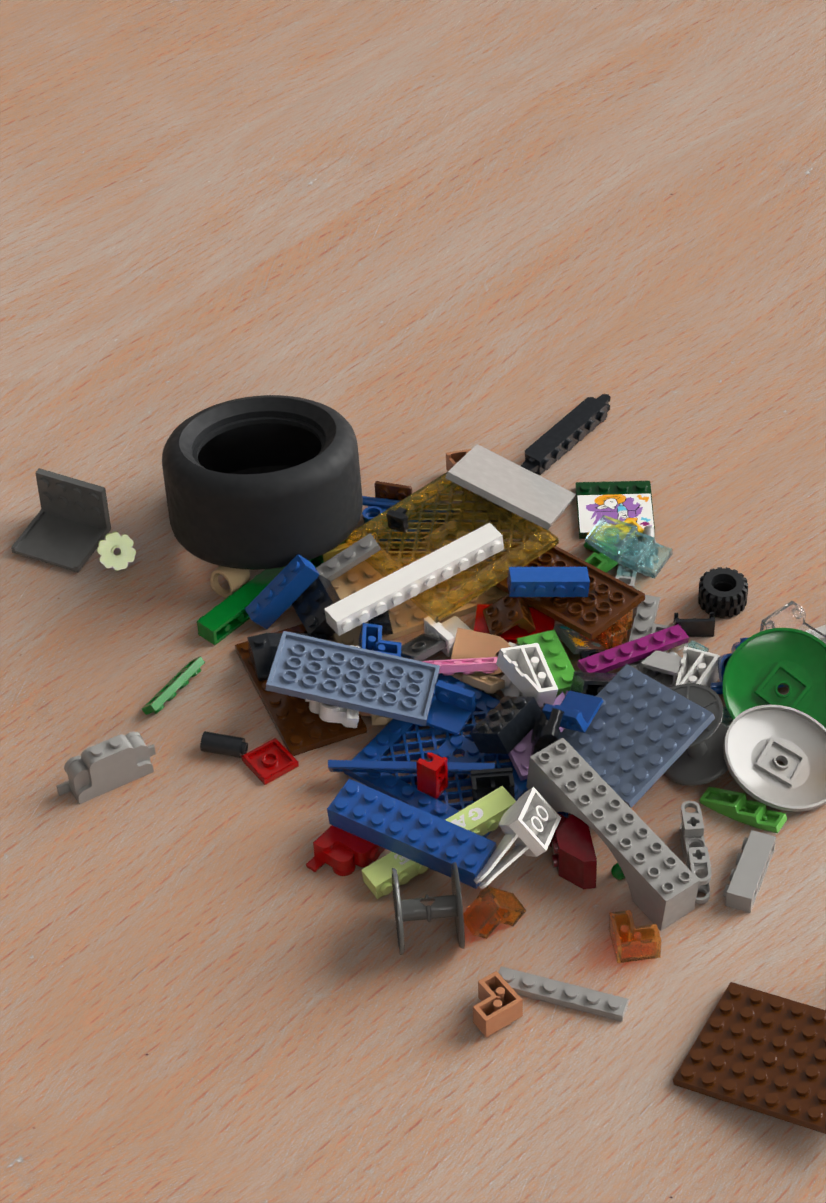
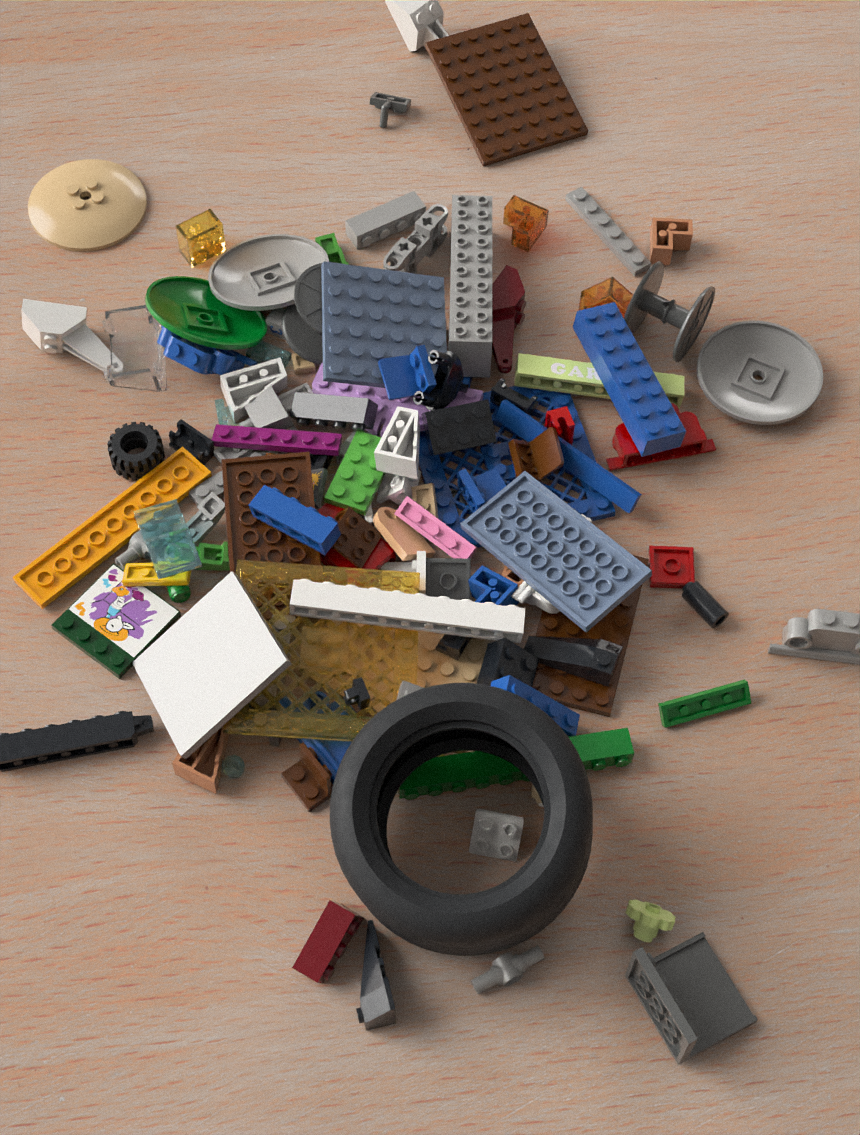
camera: 145 degrees left, 15 degrees up
(313, 909) = (762, 348): none -> light grey dish
(436, 743) = (539, 456): none -> reddish brown bracket
(529, 825) = (548, 304): white slope -> none
(684, 535) = (108, 529): none -> light orange plate

